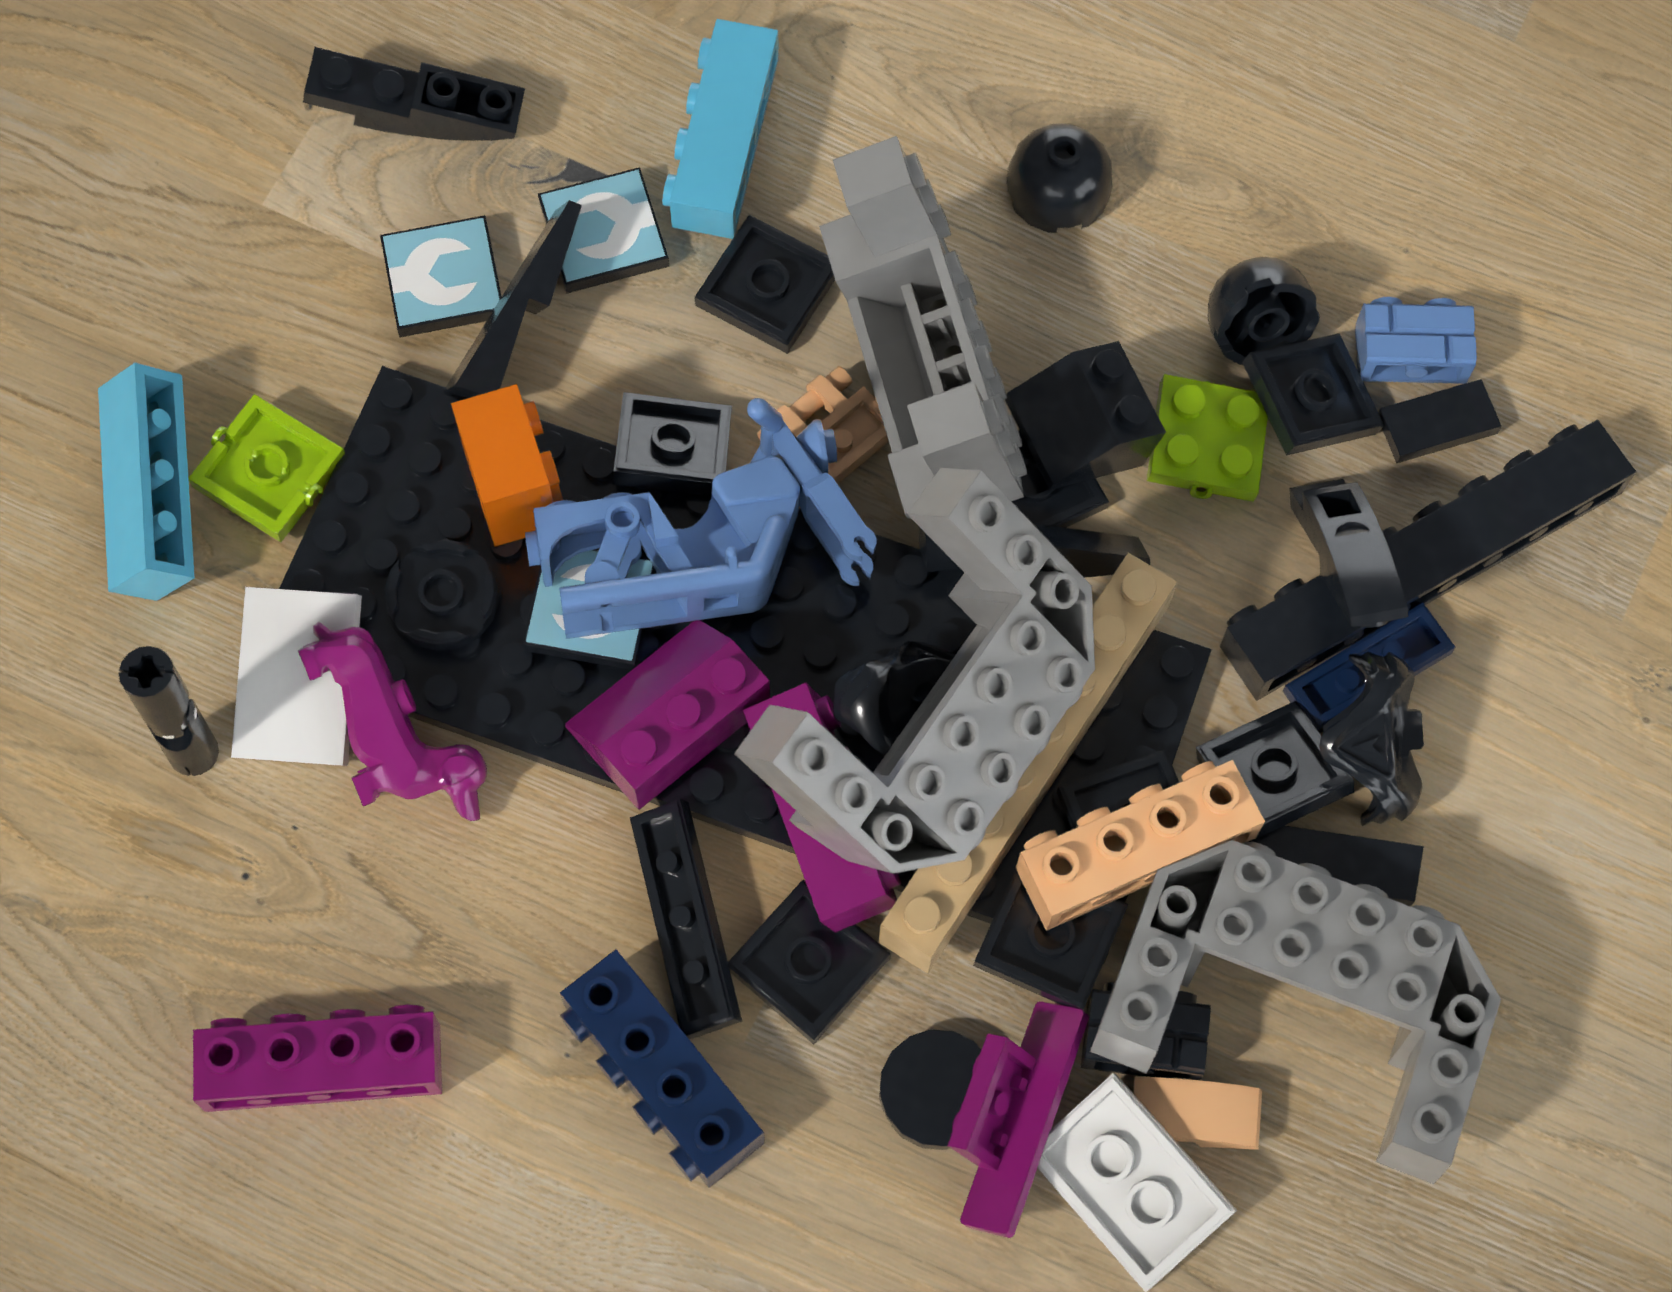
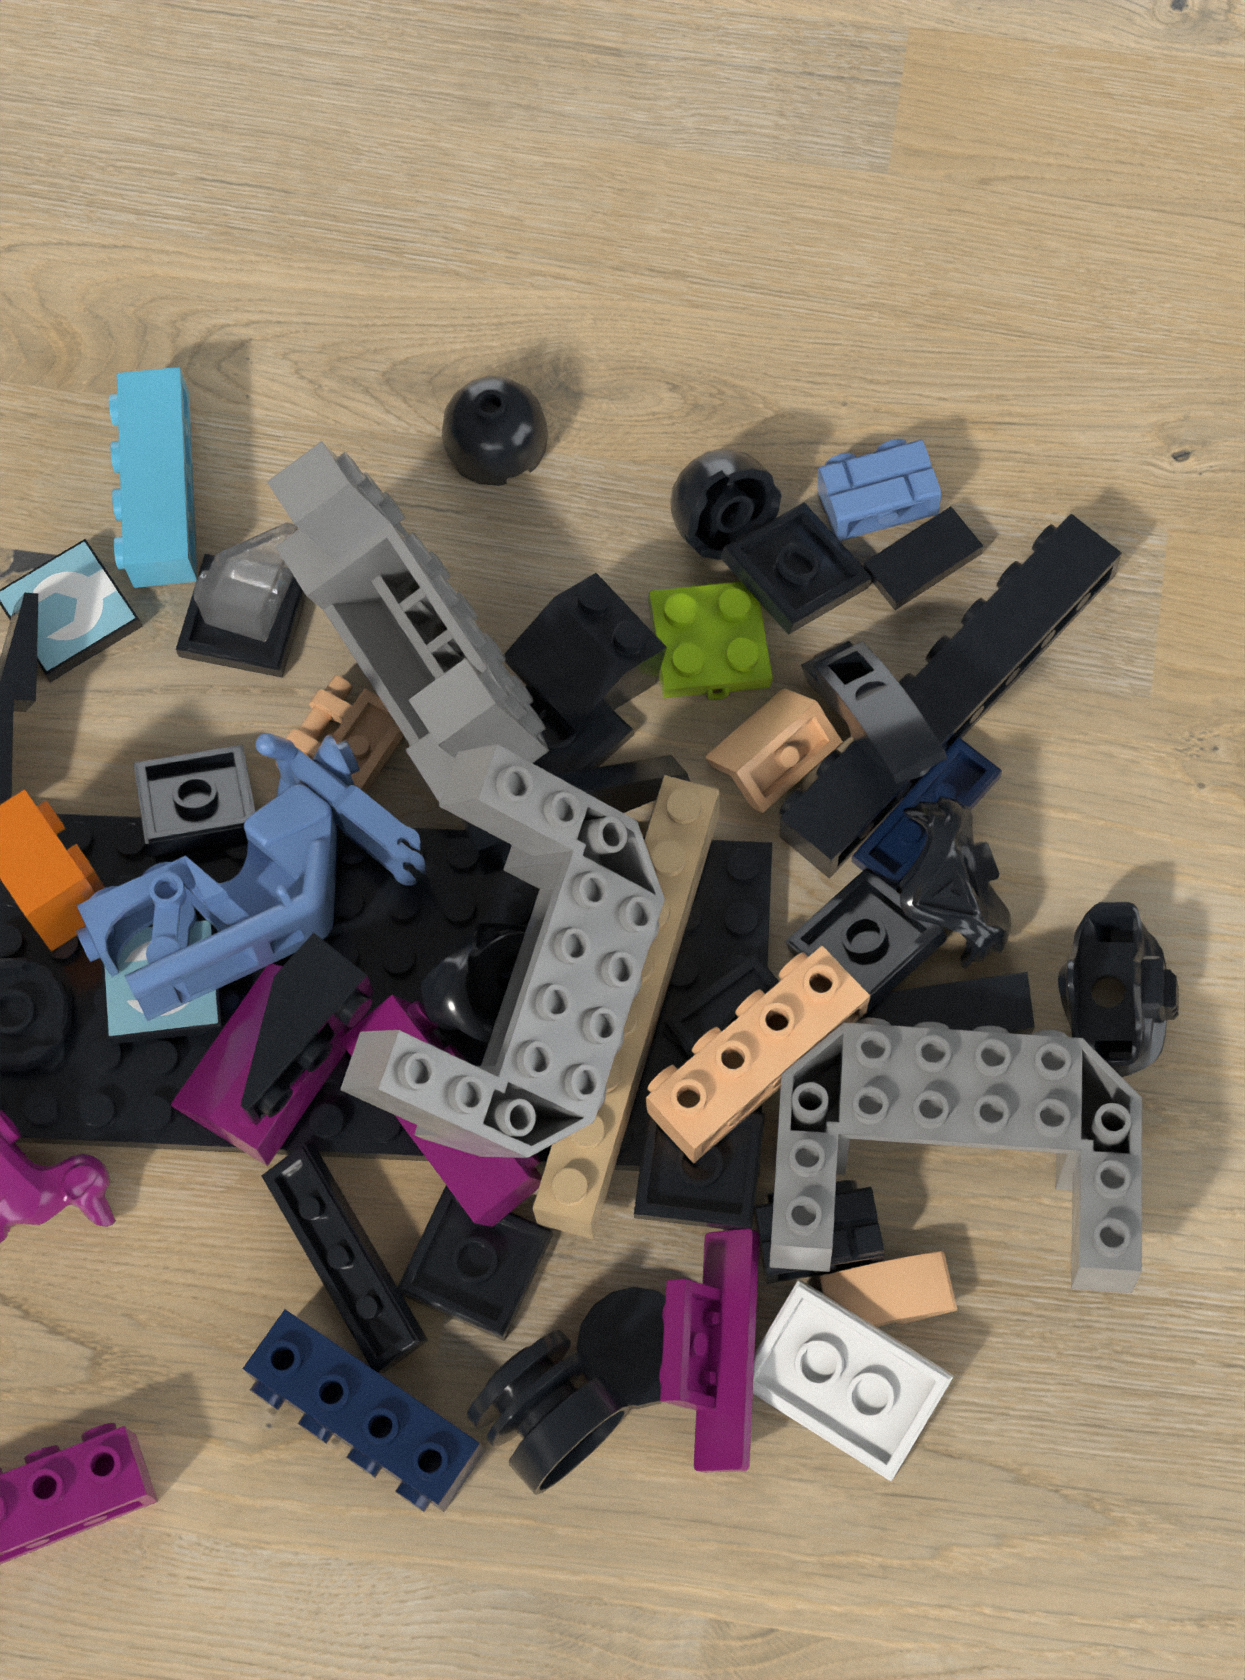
camera: 10 degrees left, 0 degrees up
(720, 672) = (304, 1012): none -> black slope
(780, 255) = (246, 585): none -> clear slope
(832, 1112) = (538, 1401): none -> black wheel
(1242, 560) = (775, 747): none -> light nougat panel
(1518, 847) = (1118, 946): none -> black piece

